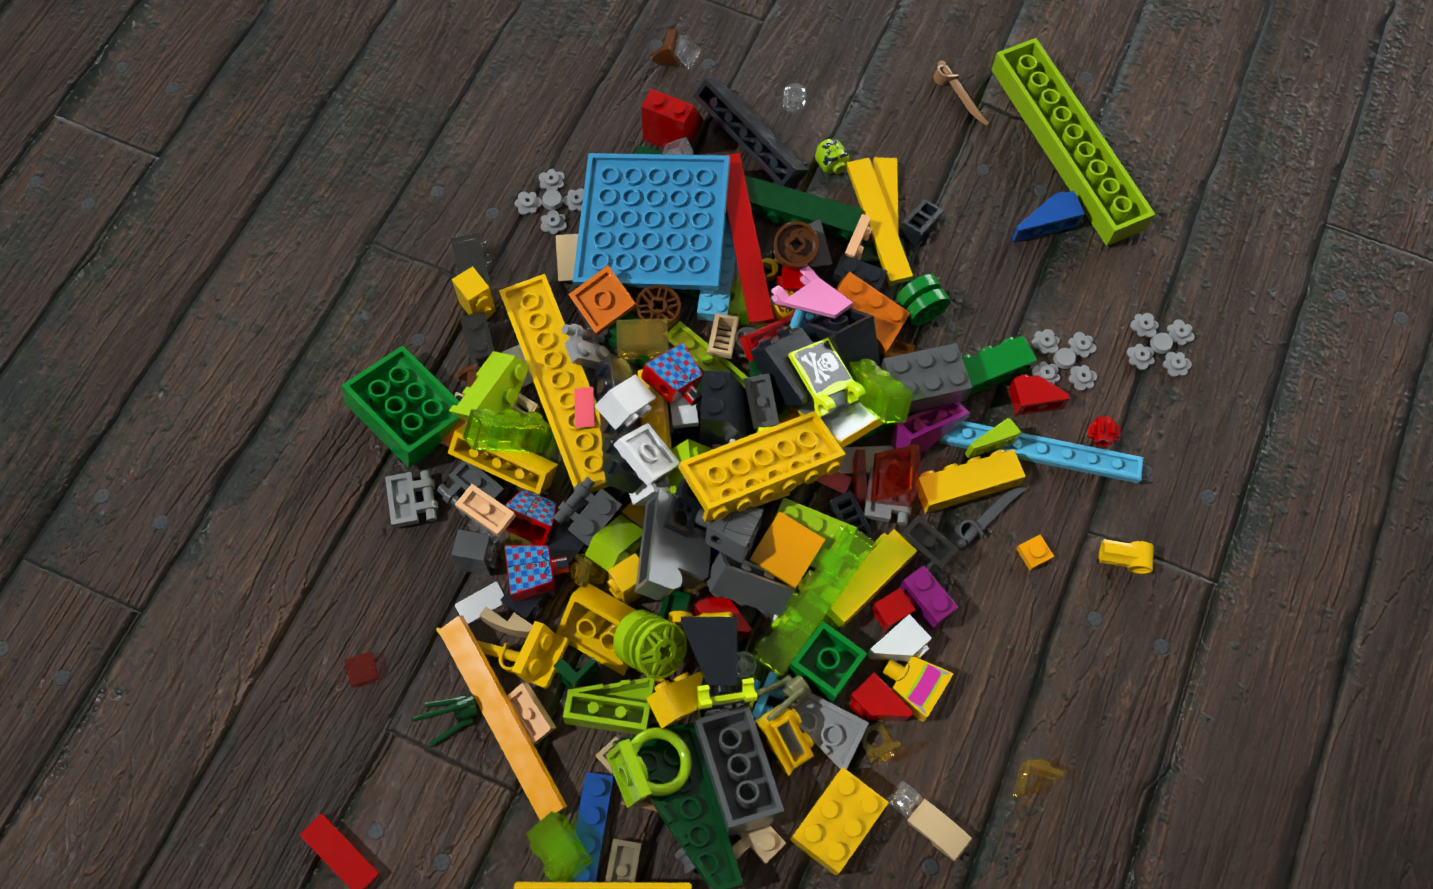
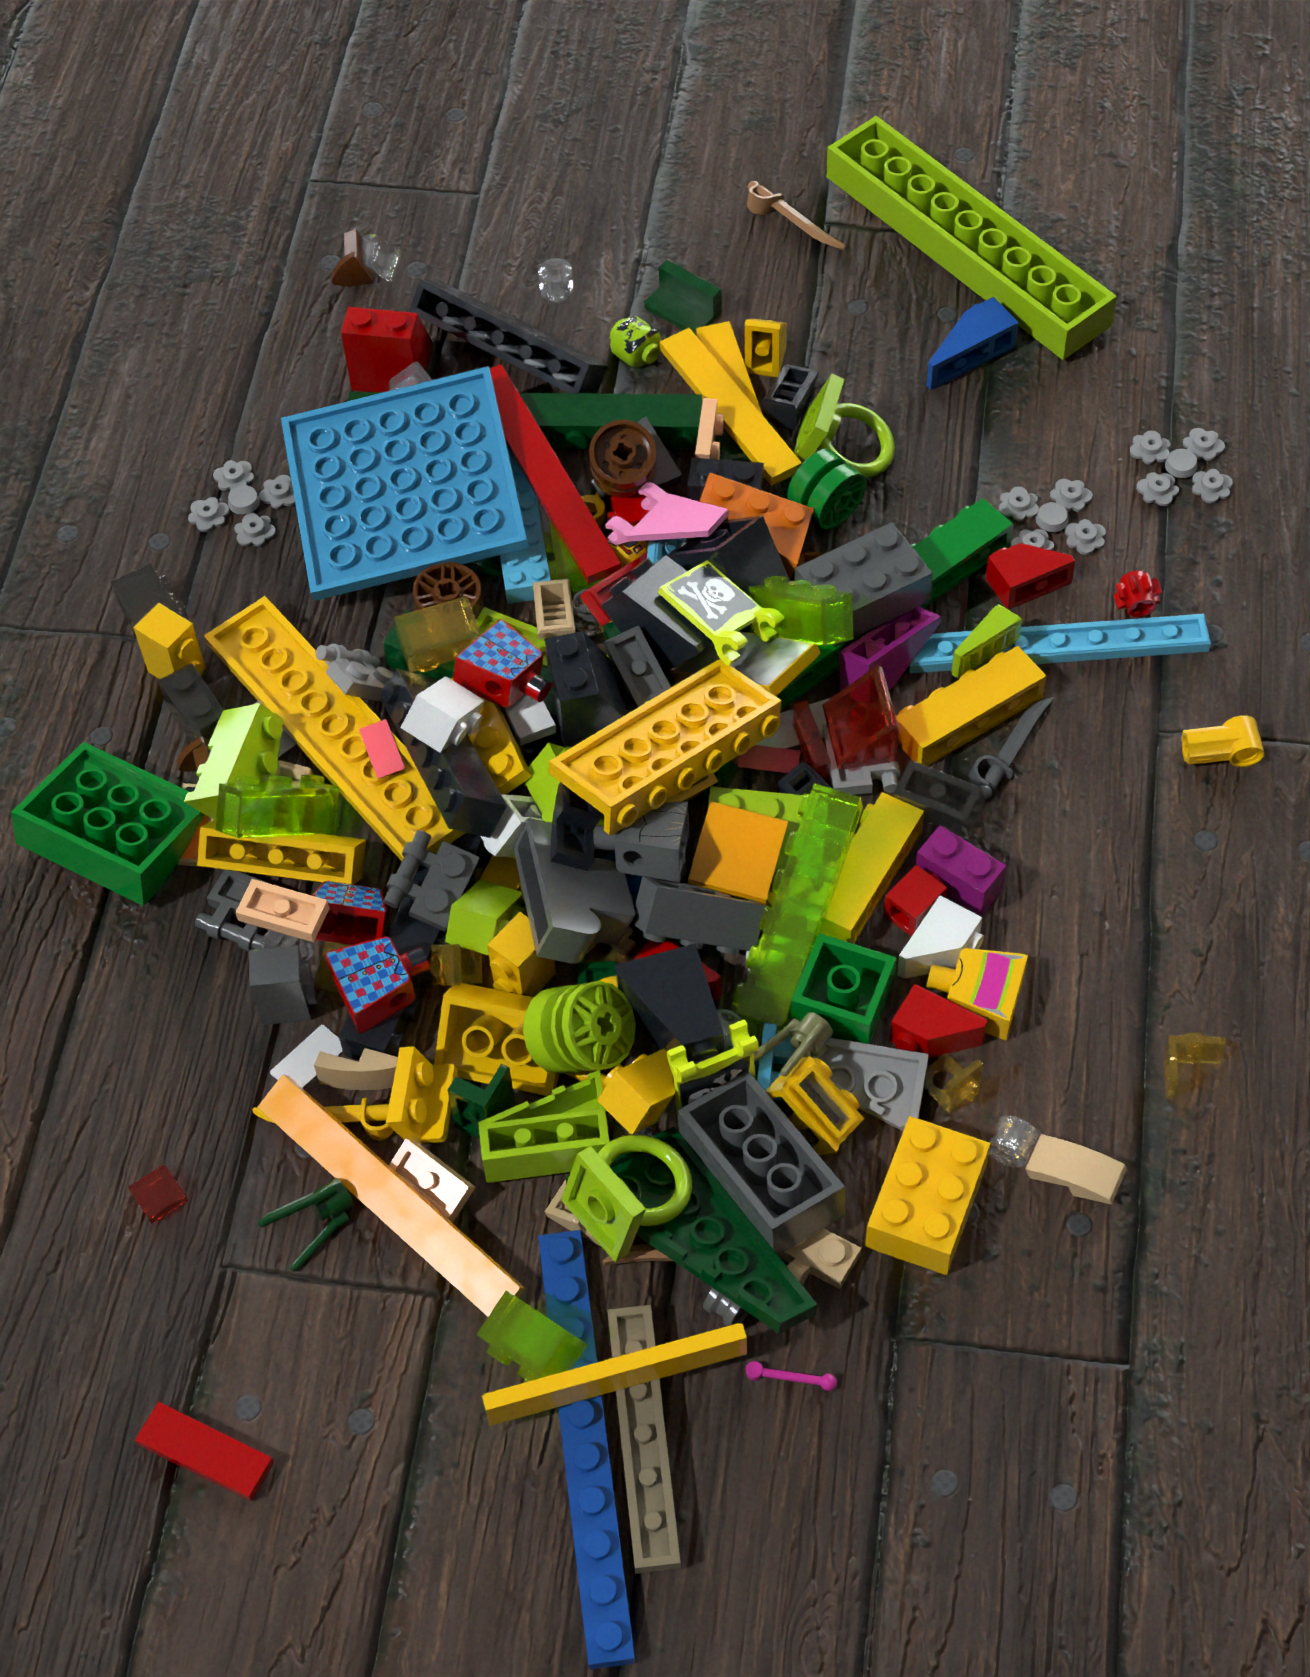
camera: 10 degrees left, 10 degrees down
(403, 502) = (148, 951): light grey plate -> none
(566, 253) = (290, 567): tan slope -> none
(602, 300) = (363, 602): orange plate -> none
(647, 454) = (496, 772): white plate -> none
(872, 134) = (684, 298): none -> dark green panel
(914, 183) = (764, 346): none -> yellow slope
(933, 252) = (823, 420): none -> lime tile
(1035, 552) = (1092, 776): light orange plate -> none

